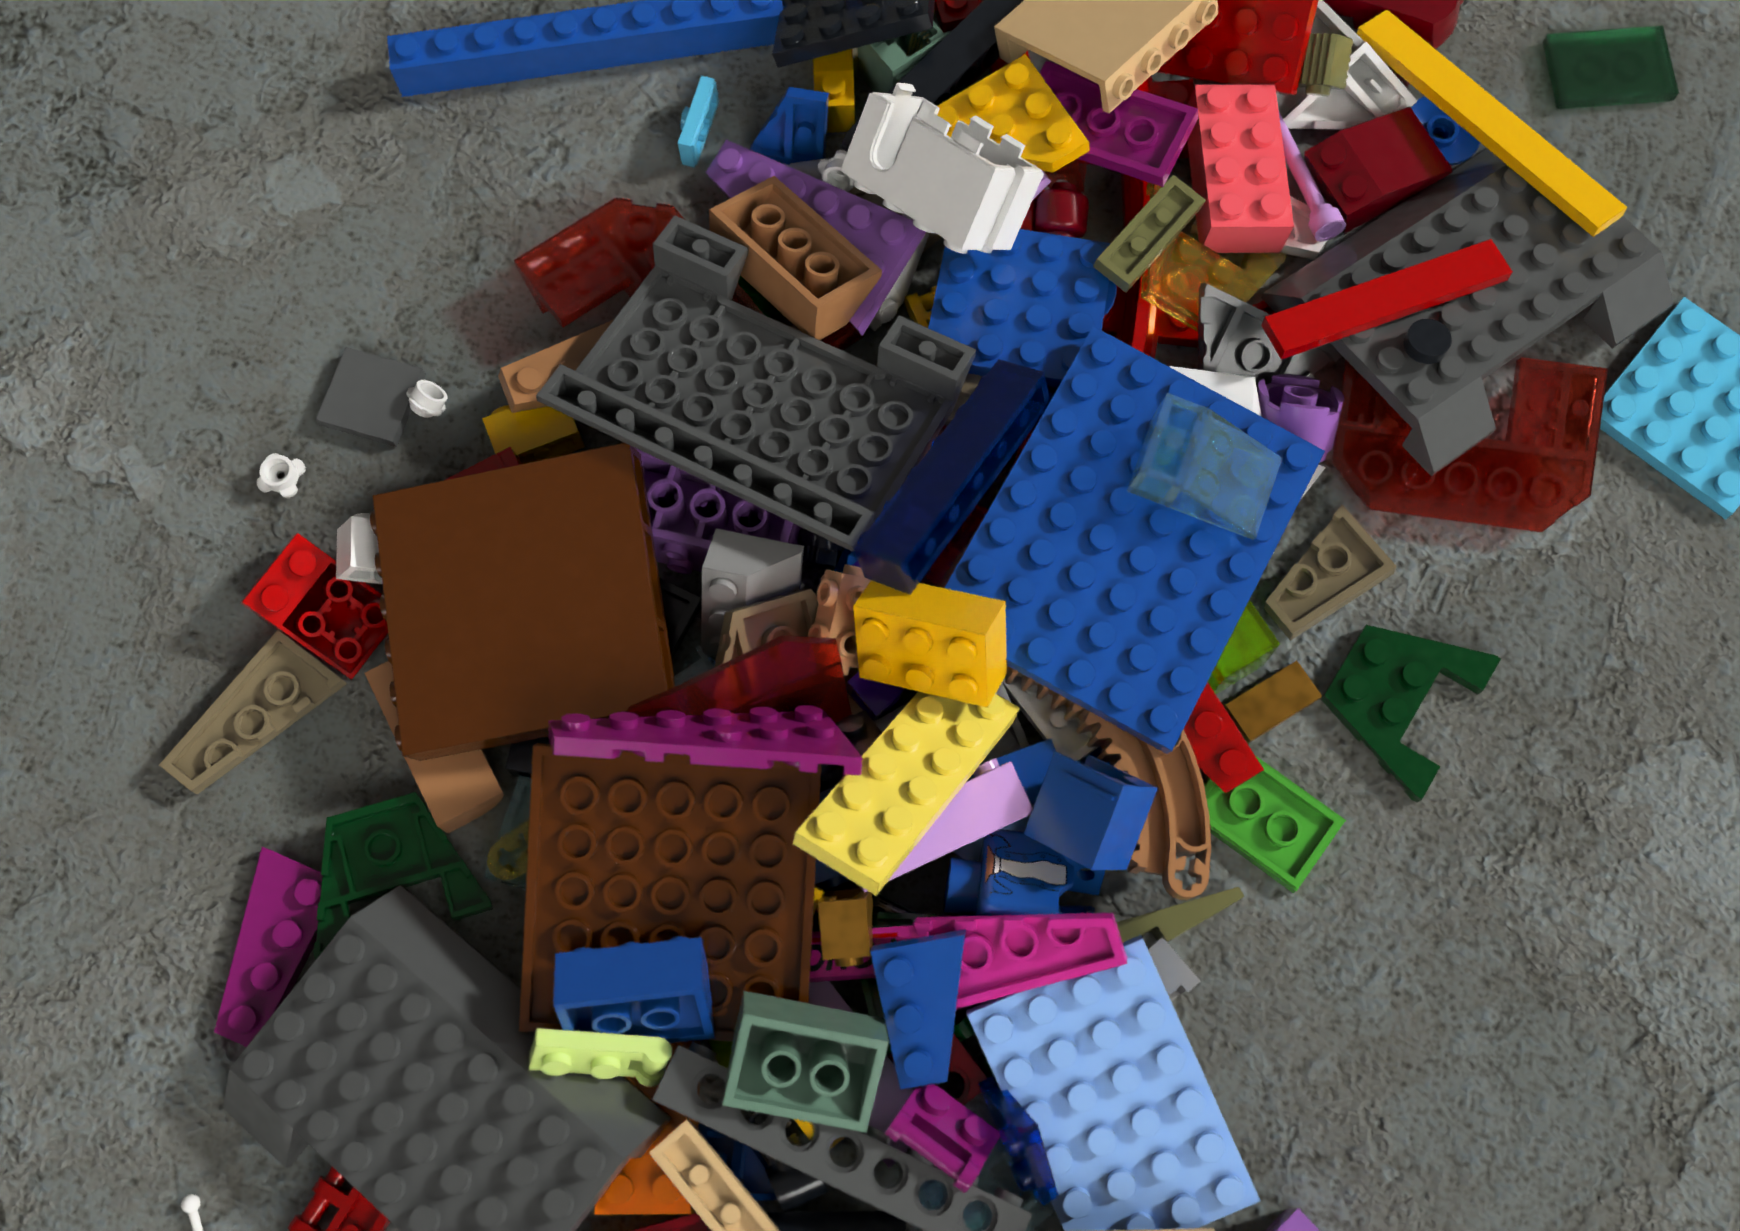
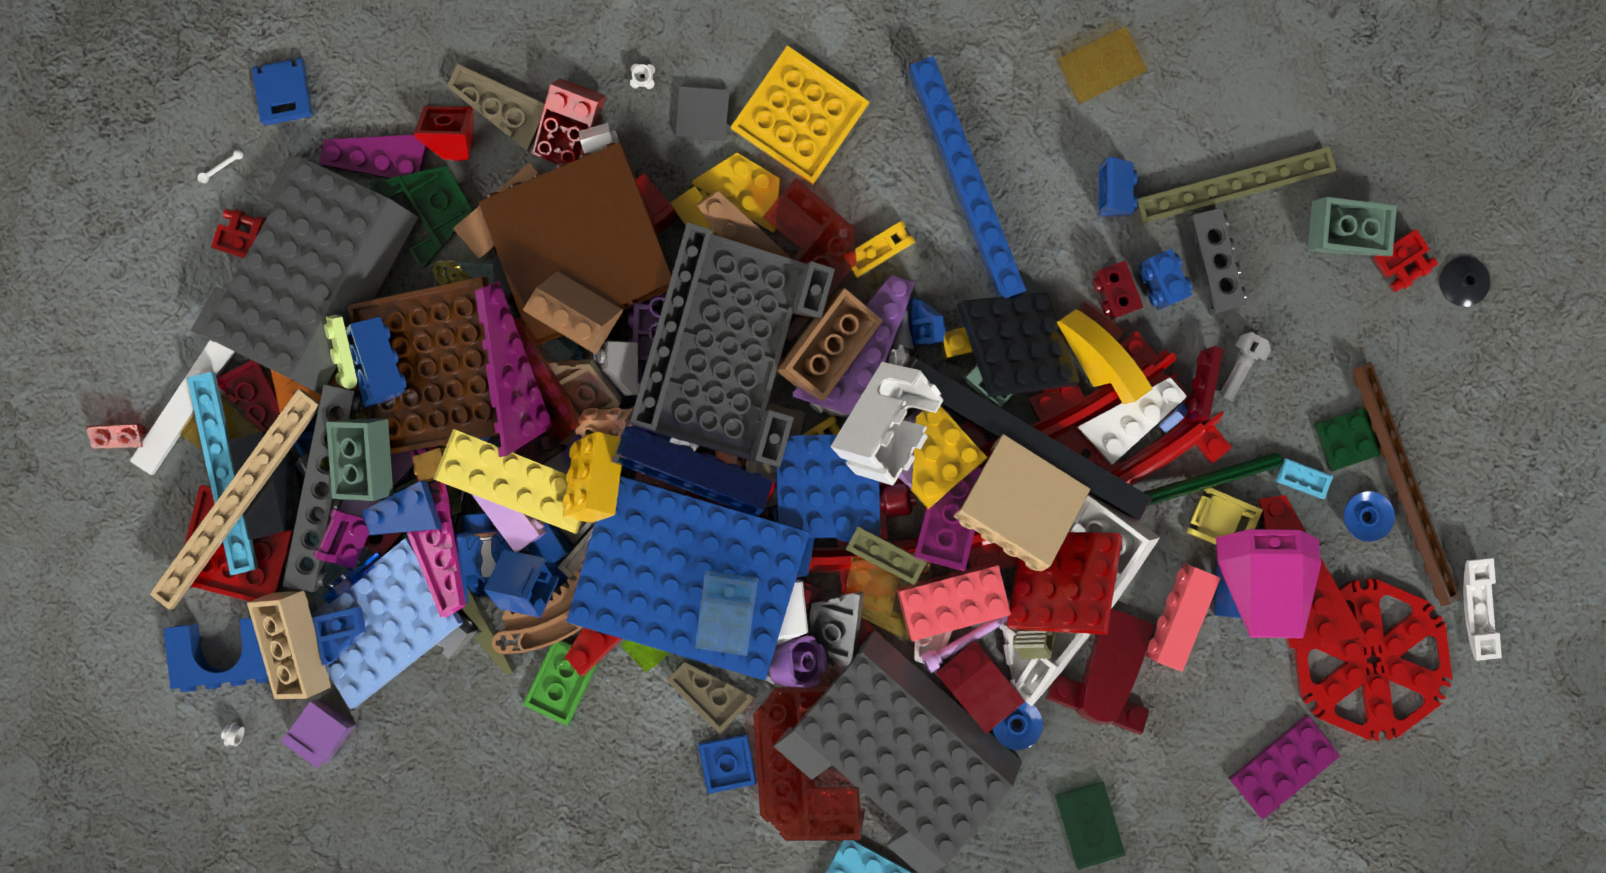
camera: 80 degrees right, 15 degrees up
(91, 1091) = (281, 85): none -> blue container
(269, 805) = (447, 131): none -> red slope
(418, 252) = (800, 115): none -> yellow plate
(427, 399) = (706, 148): white plate -> none
(502, 340) = (744, 185): none -> yellow wing
(638, 613) = (573, 311): none -> medium nougat slope
(660, 174) = (881, 248): none -> yellow plate
(697, 121) = (924, 260): medium azure plate -> none
(1115, 1184) = (338, 632): none -> blue wing
(1272, 701) = (628, 675): pearl gold tile -> none
(1384, 687) = (651, 737): dark green wing -> none
(1386, 298) = (867, 703): red tile -> none
(1427, 341) = (842, 730): black tile -> none
(1445, 573) = (727, 763): none -> blue tile
(1492, 124) = (1014, 750): yellow tile -> none

